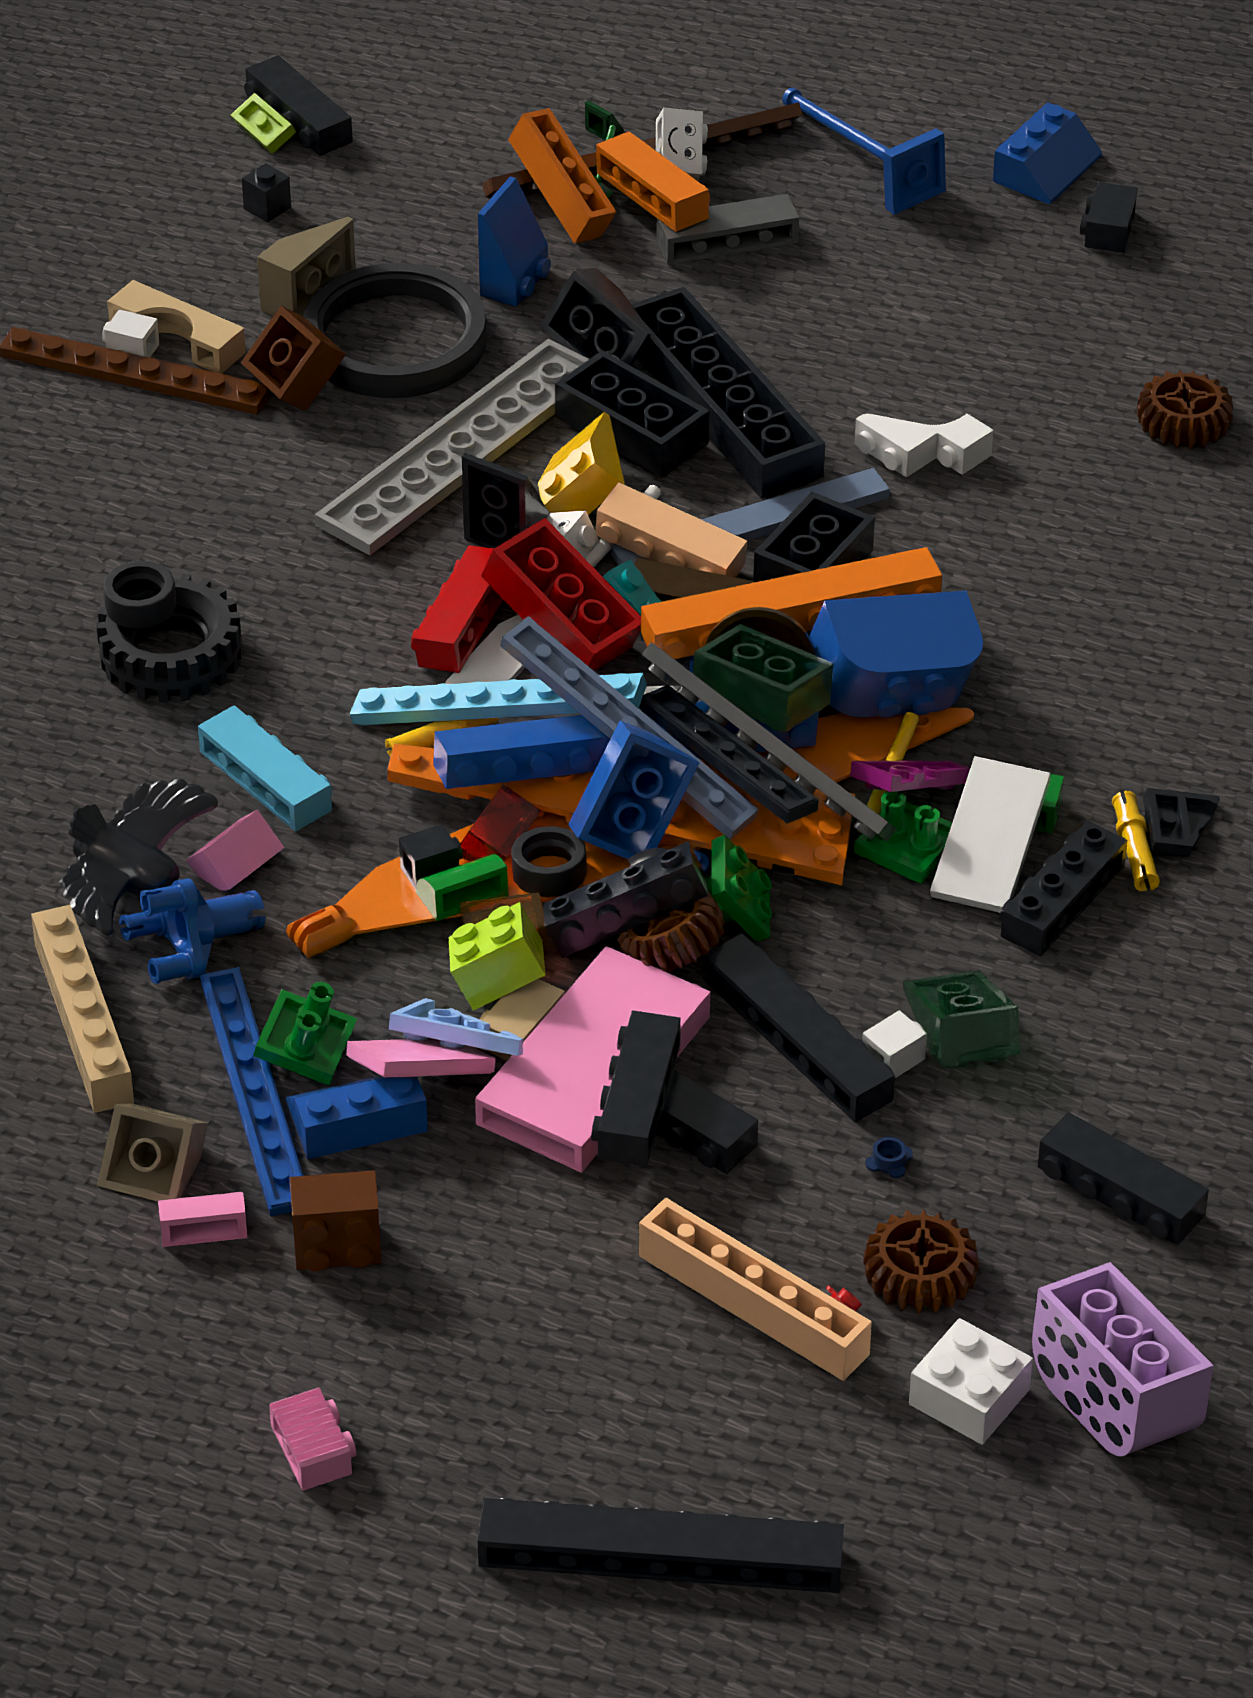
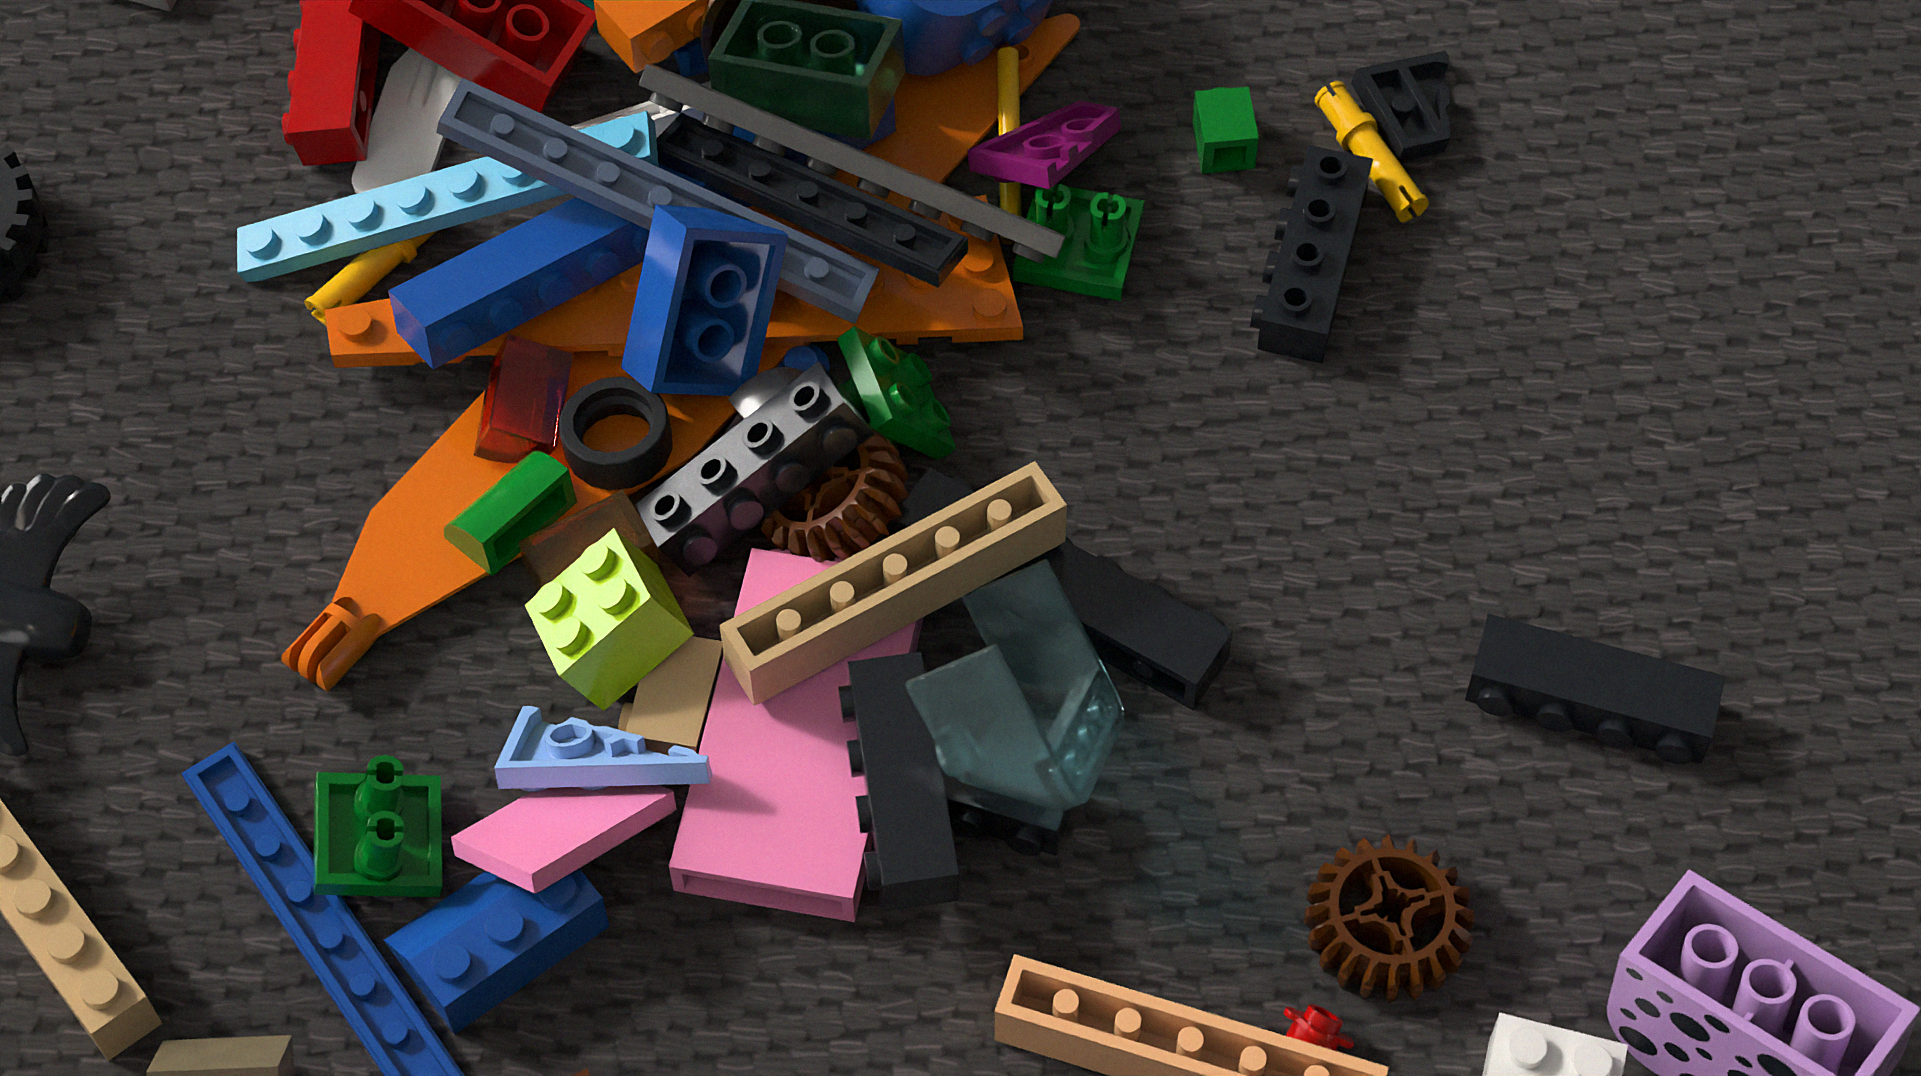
camera: 20 degrees left, 15 degrees up
(189, 925) = (143, 703): blue wheel -> none
(236, 852) = (158, 550): bright pink brick -> none
(265, 768) = (151, 398): medium azure brick -> none
(428, 853) = (444, 477): black brick -> none
(684, 979) = (893, 583): none -> tan brick
(740, 1084) = (1030, 708): none -> clear light blue windscreen
(889, 1148) = (1267, 741): dark blue plate -> none
(897, 1042) = (1204, 569): white brick -> none
(964, 1018) = (1272, 497): clear green slope -> none
(990, 834) = (1193, 205): white tile -> none

